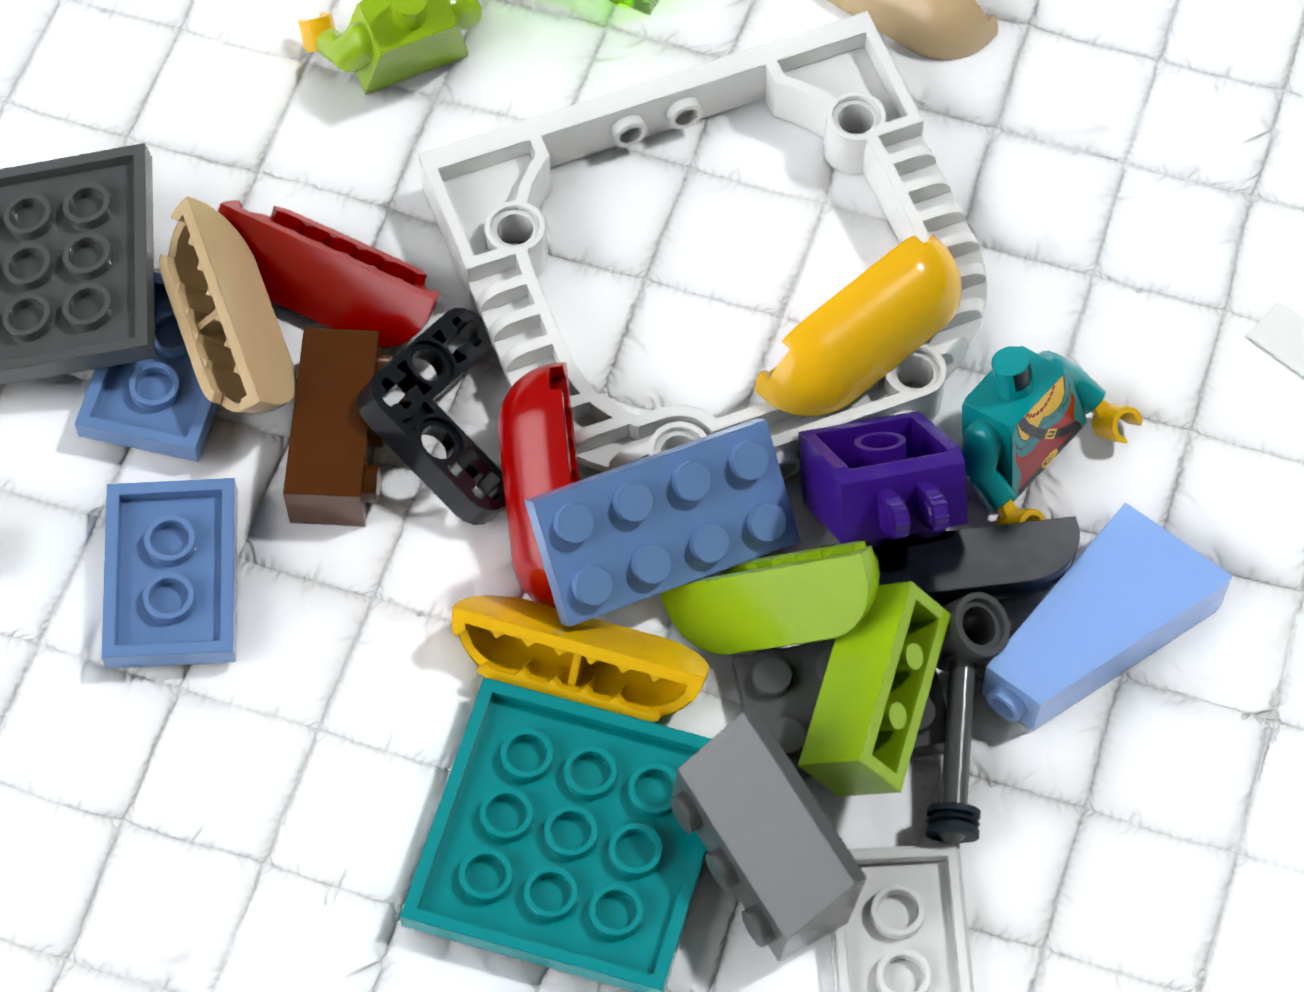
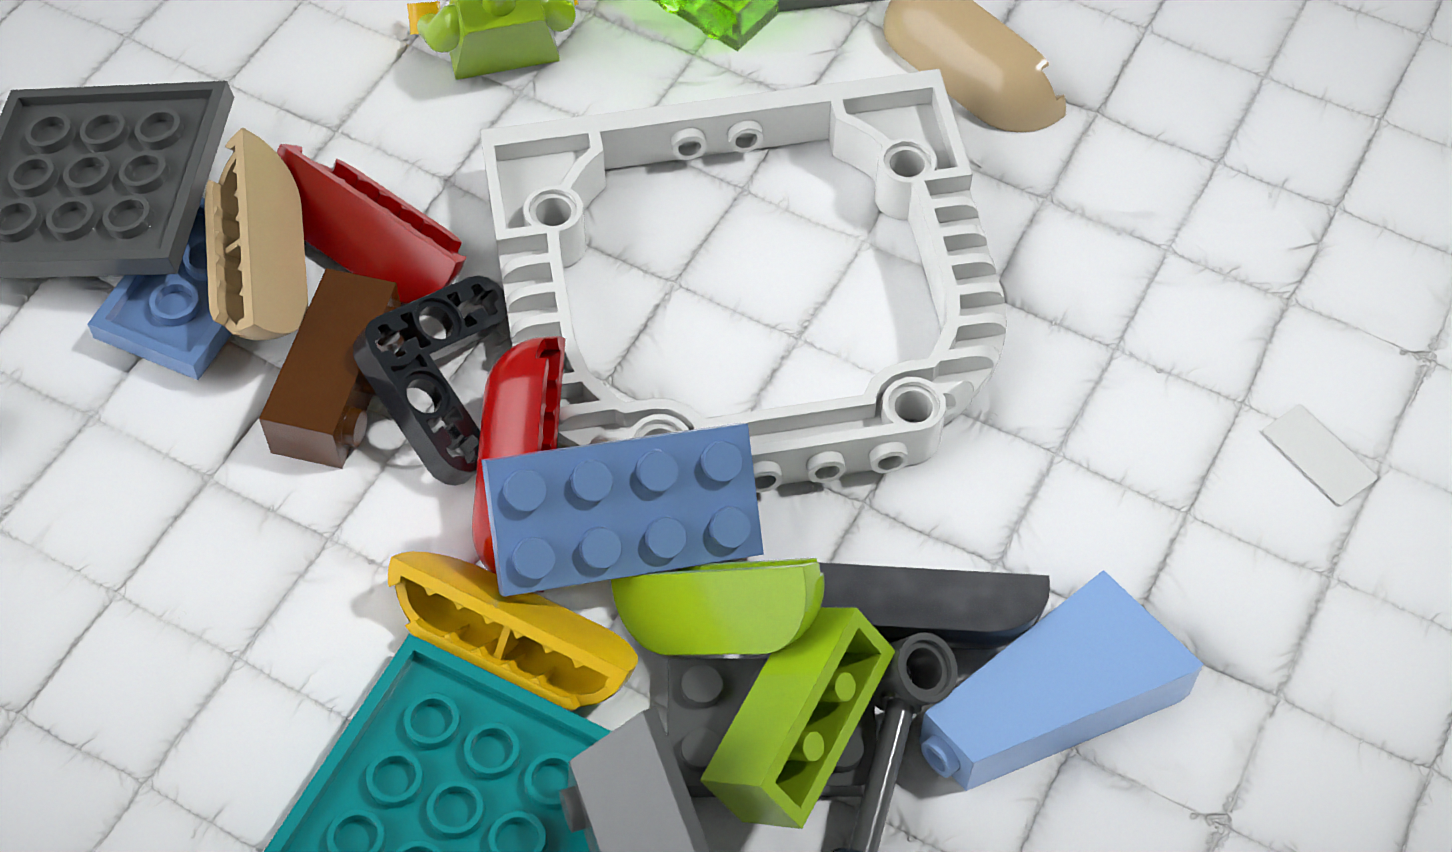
camera: 10 degrees right, 5 degrees down
(170, 573) = (135, 480): medium blue plate -> none
(865, 330) = (869, 355): yellow brick -> none
(883, 479) = (858, 505): dark purple hinge -> none
(1024, 419) = (1017, 470): teal torso -> none

